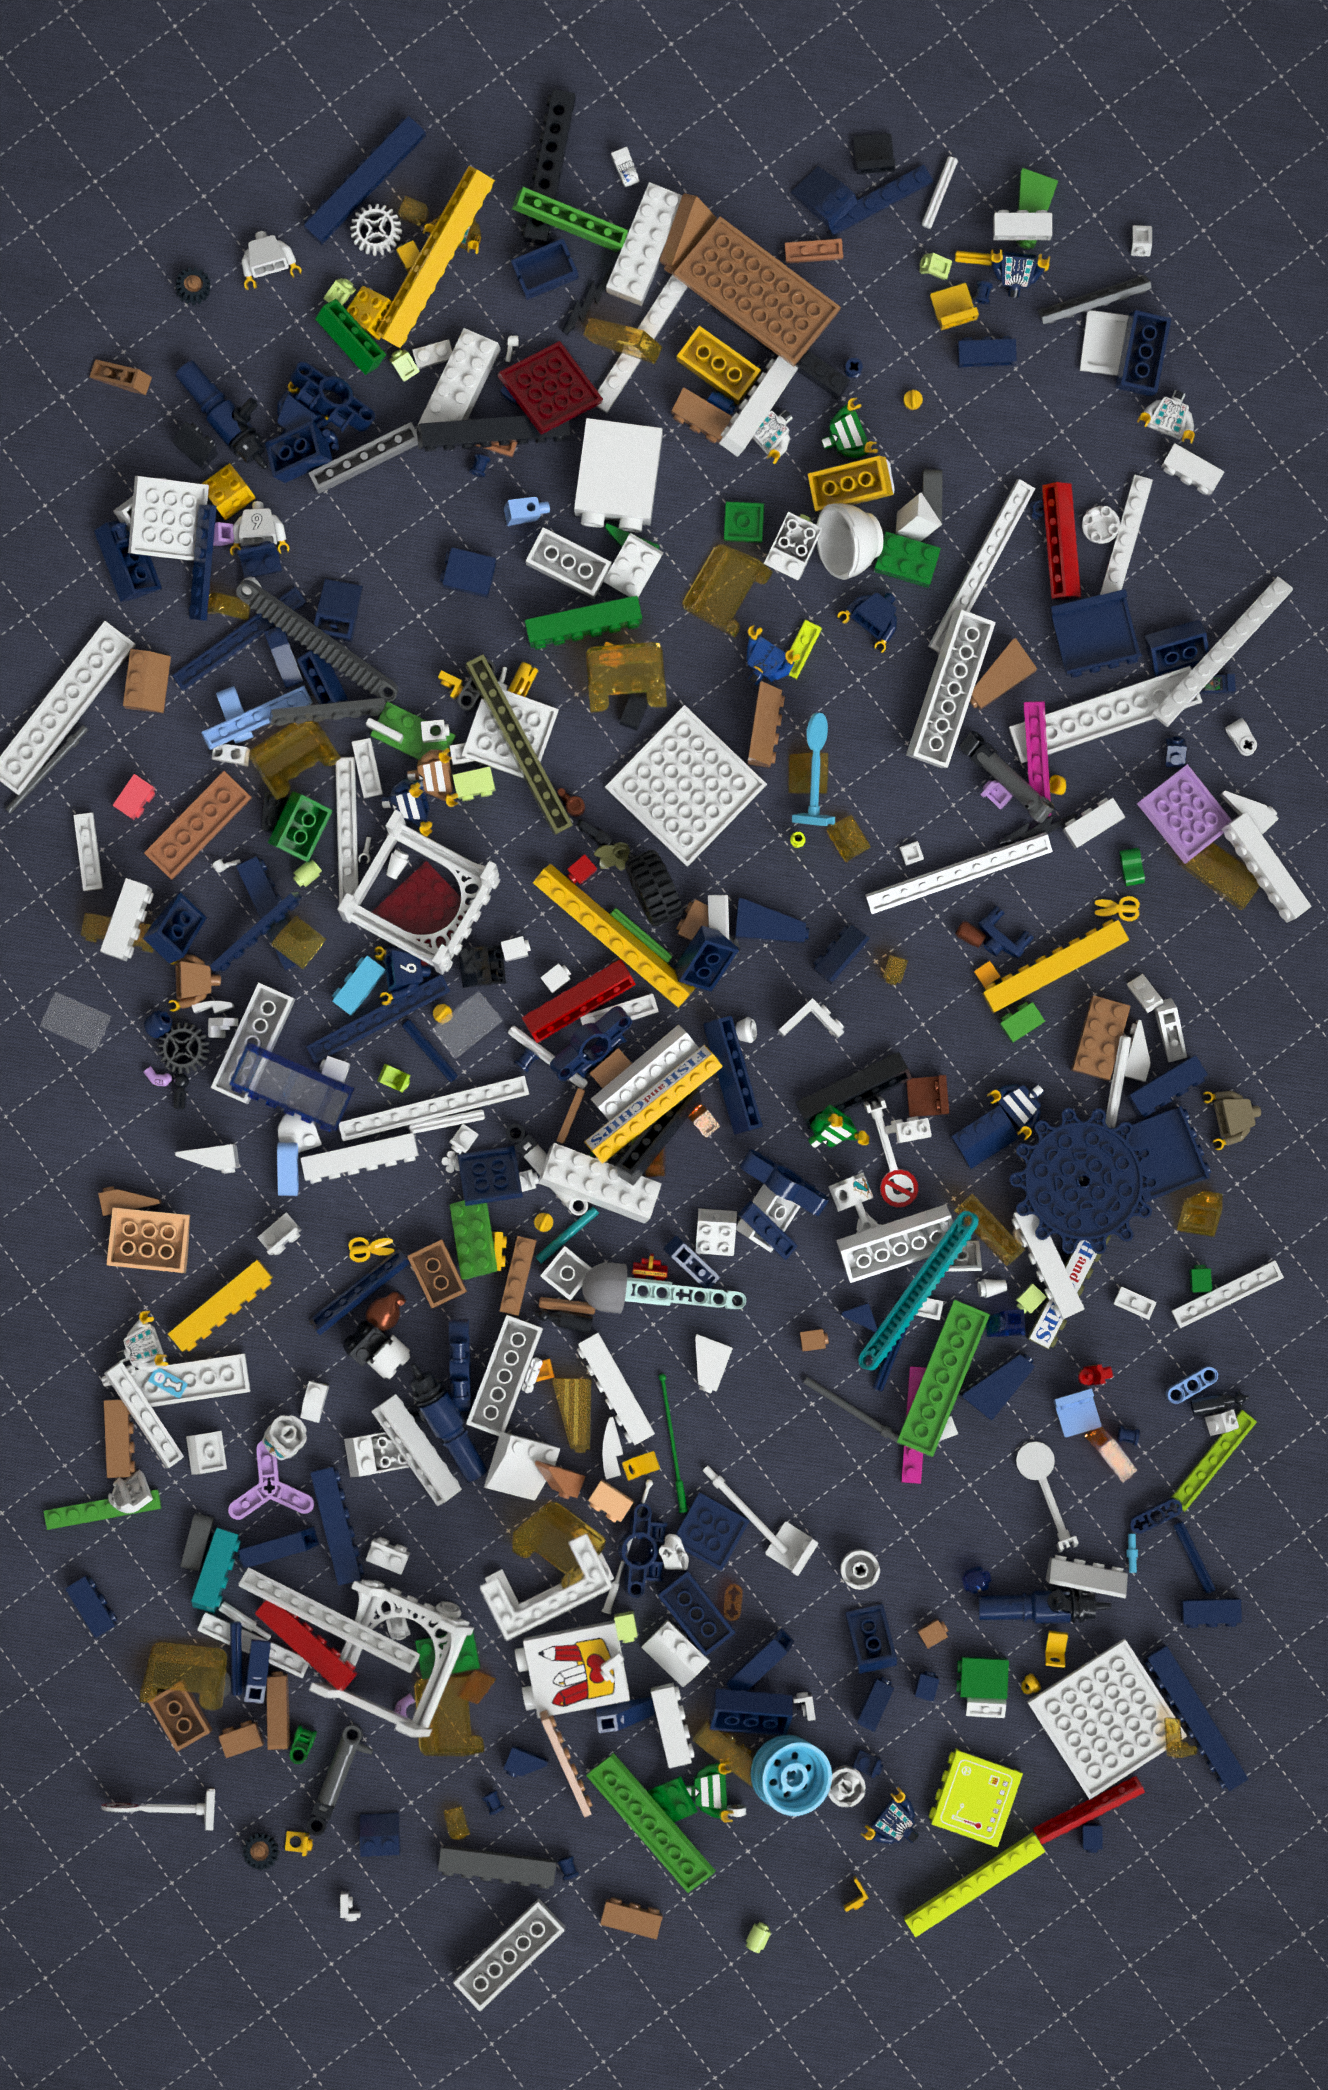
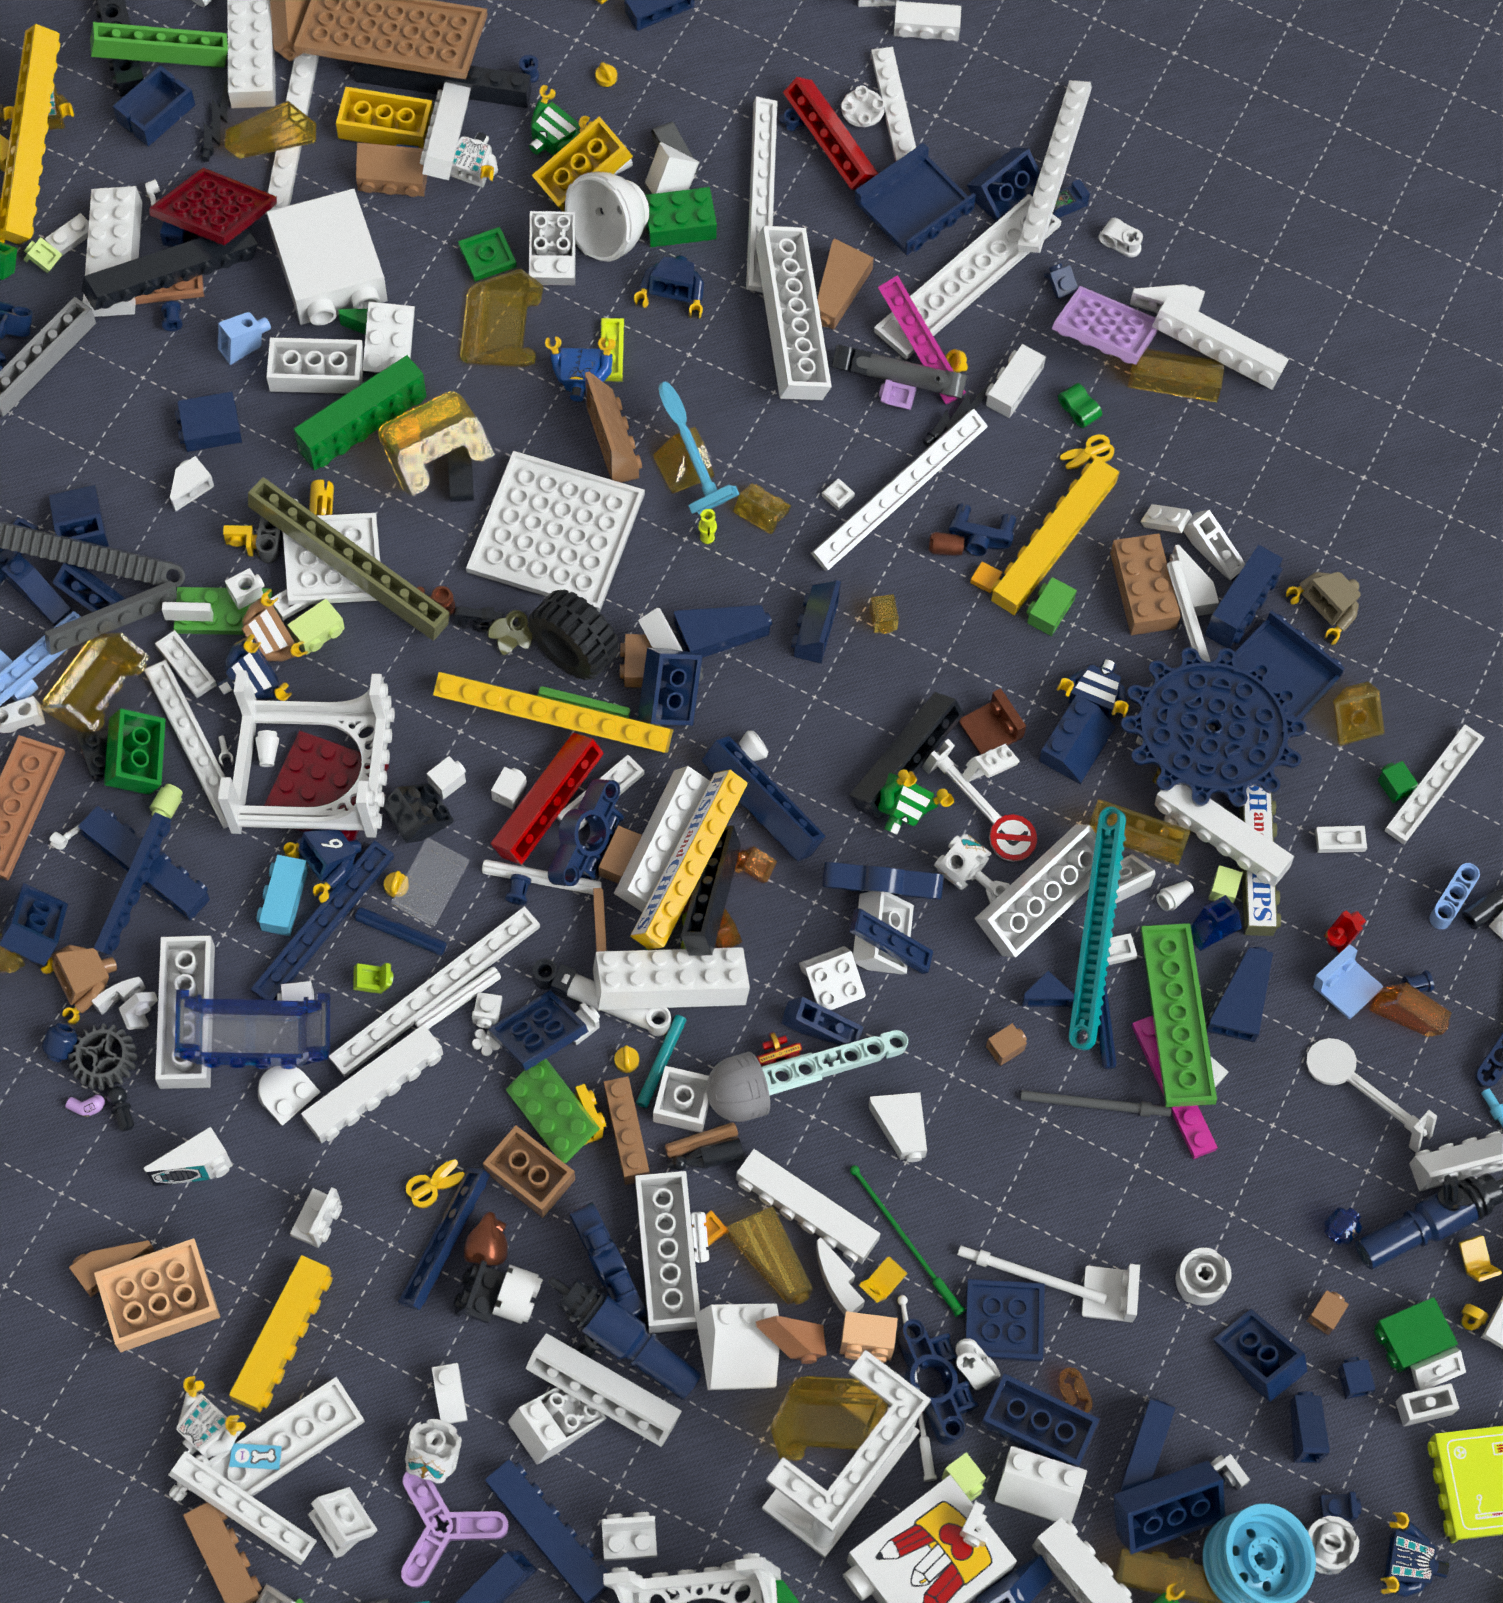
camera: 30 degrees left, 20 degrees down
(287, 1169) = (291, 1134): light blue beam -> none
(298, 942) = (188, 874): clear yellow slope -> none
(432, 617) = (189, 483): none -> white slope
(581, 870) = (482, 662): red brick -> none
(820, 1012) = (826, 690): white bracket -> none
(963, 1728) = (1427, 1404): none -> white brick

